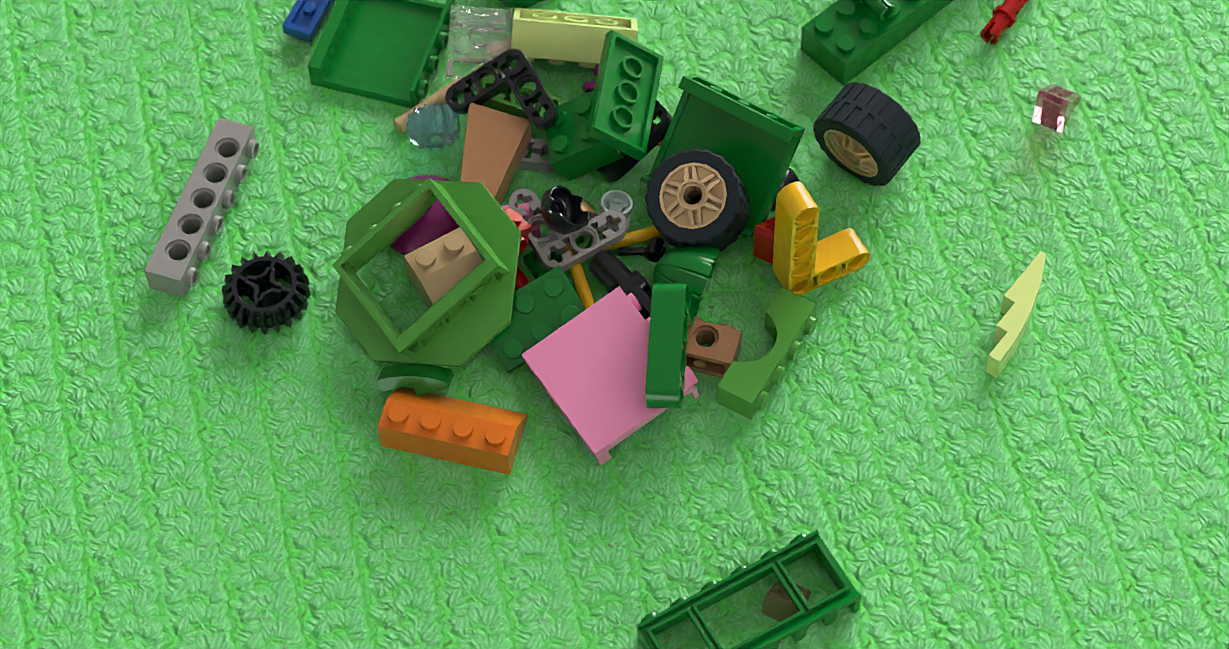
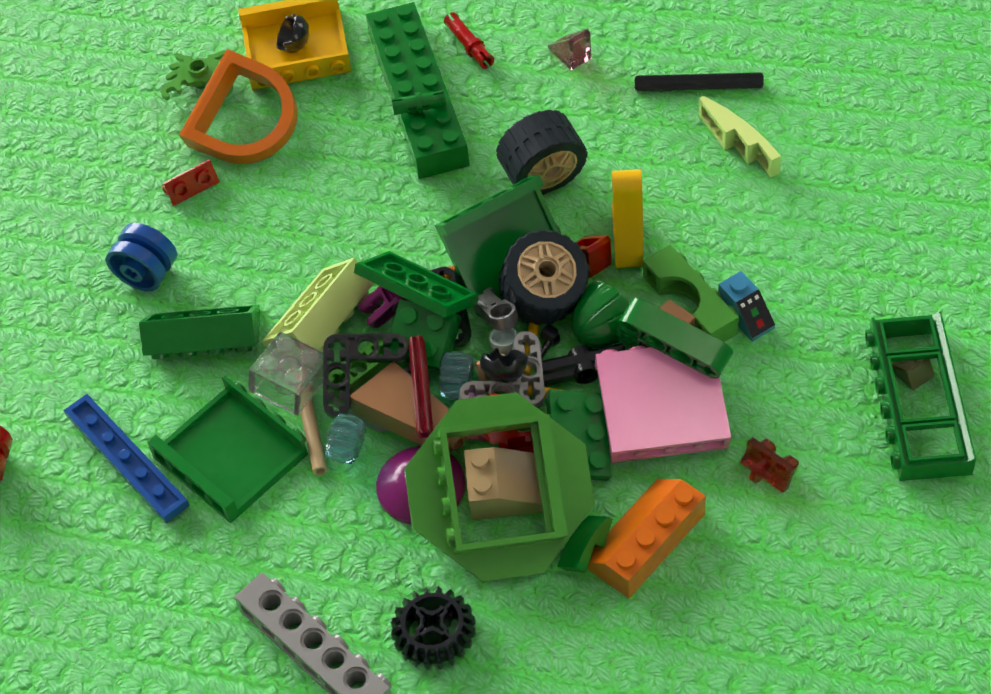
camera: 60 degrees left, 5 degrees down
(508, 152) = (420, 386): none -> dark red axle
(551, 175) = (454, 372): none -> clear light blue gear
(594, 492) = (768, 465): none -> clear red hips
(637, 178) = (493, 309): none -> flat silver piece
(780, 409) = (748, 302): none -> slope
(1082, 248) = (699, 81): none -> black axle

